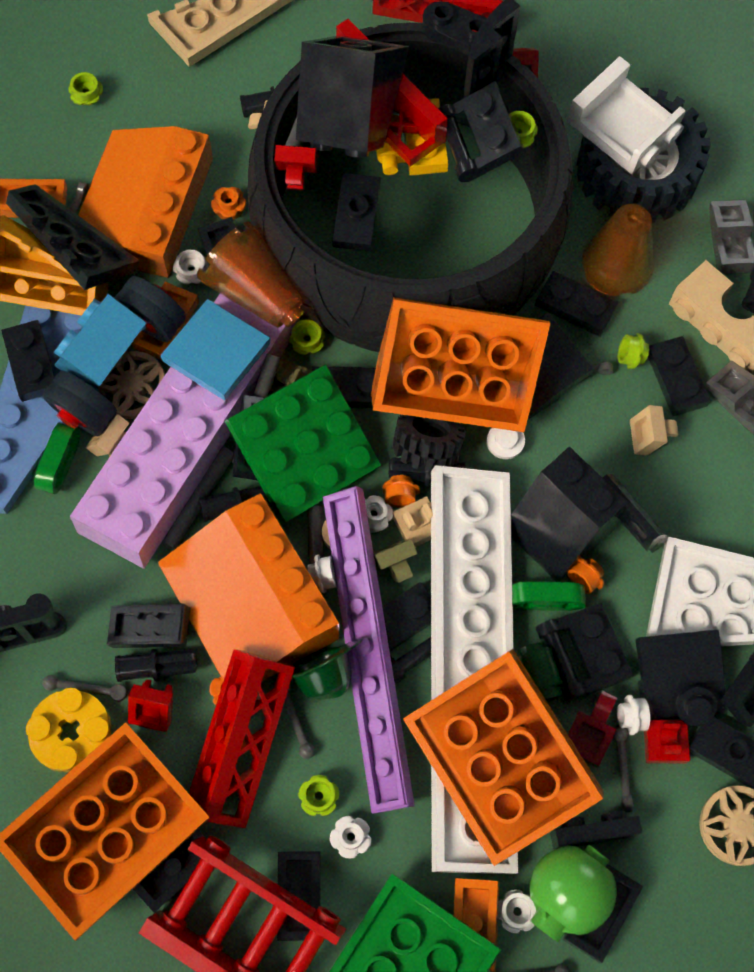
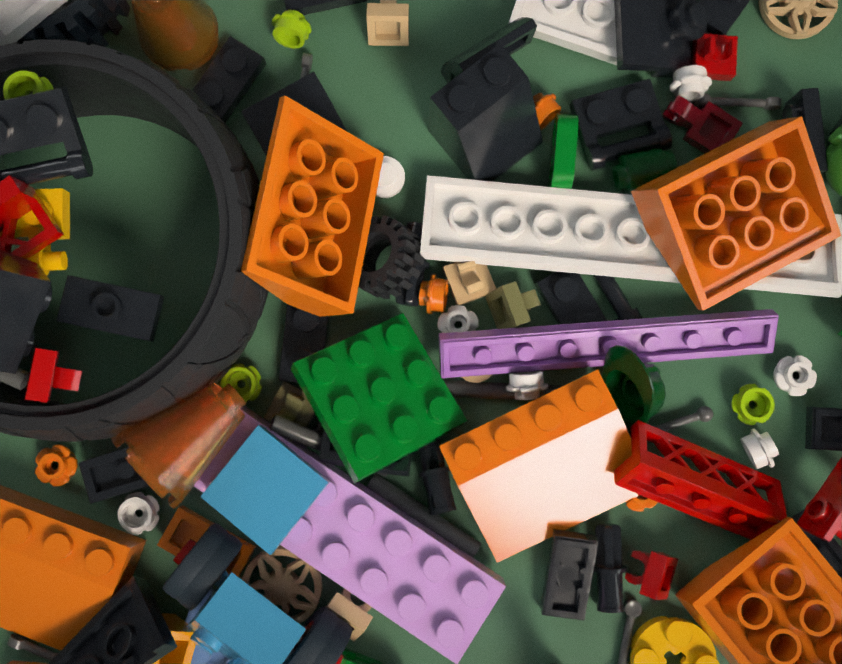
camera: 85 degrees left, 15 degrees up
(275, 801) = (759, 448): none -> white plate

